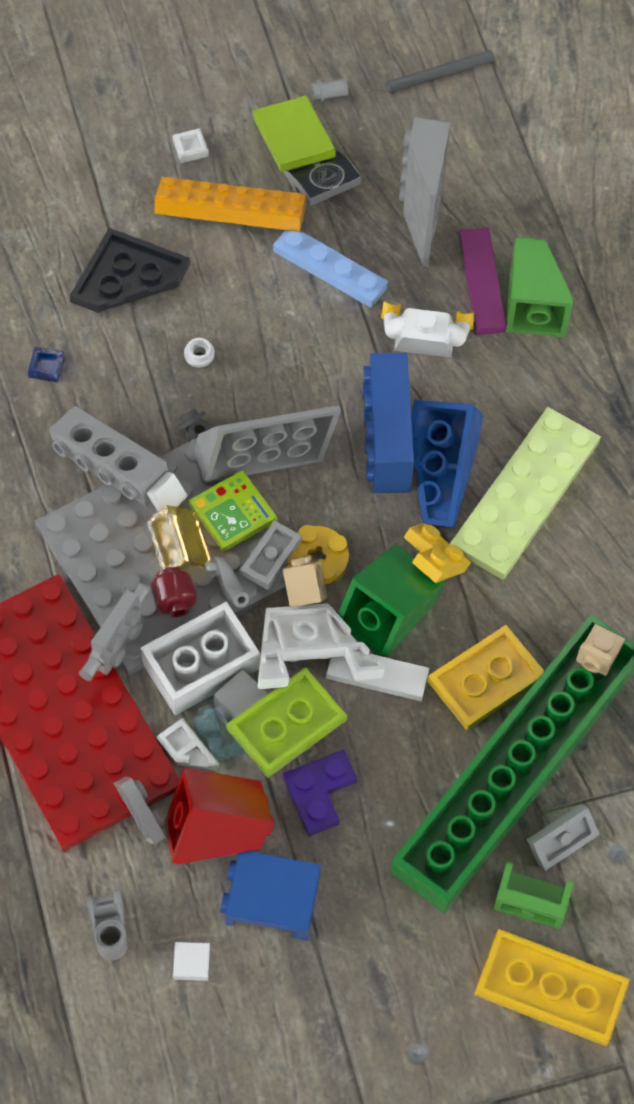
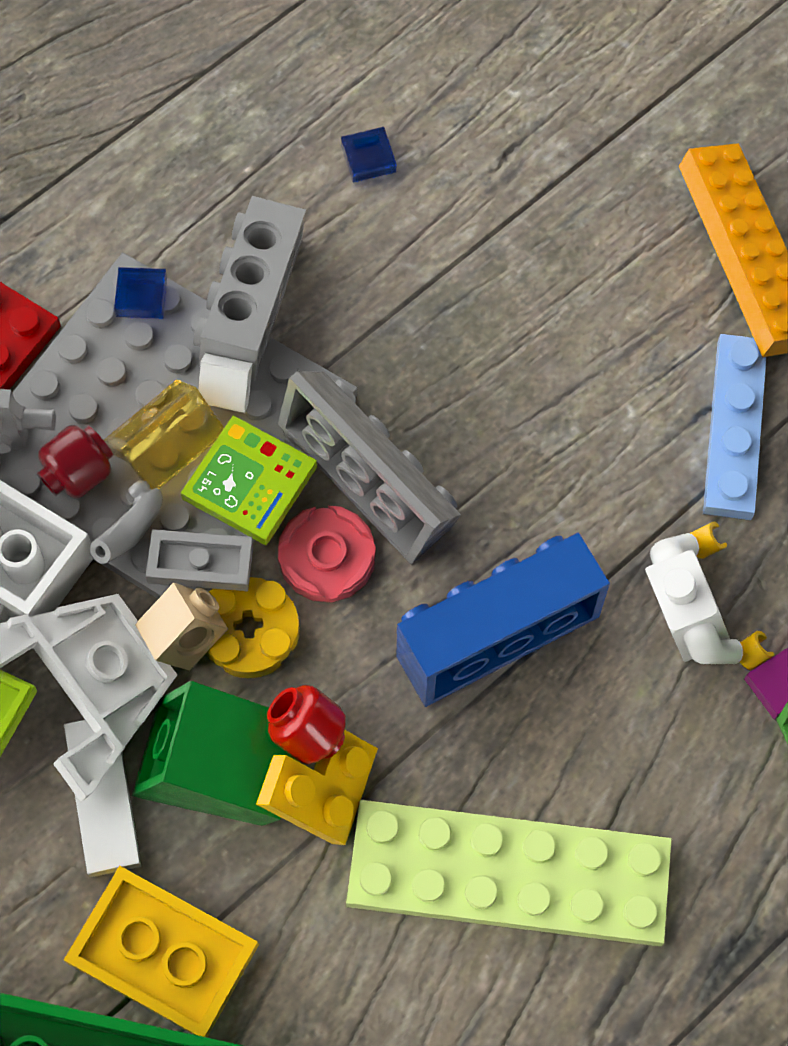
camera: 65 degrees right, 5 degrees up
(75, 517) = (140, 293): none -> clear blue tile
(127, 271) = (563, 176): black plate -> none
(190, 421) = (373, 363): dark grey plate -> none
(199, 345) = (490, 313): white plate -> none
(294, 497) = (326, 553): none -> coral tile
(404, 537) = (306, 724): none -> red head
(444, 454) = (507, 723): blue wedge -> none

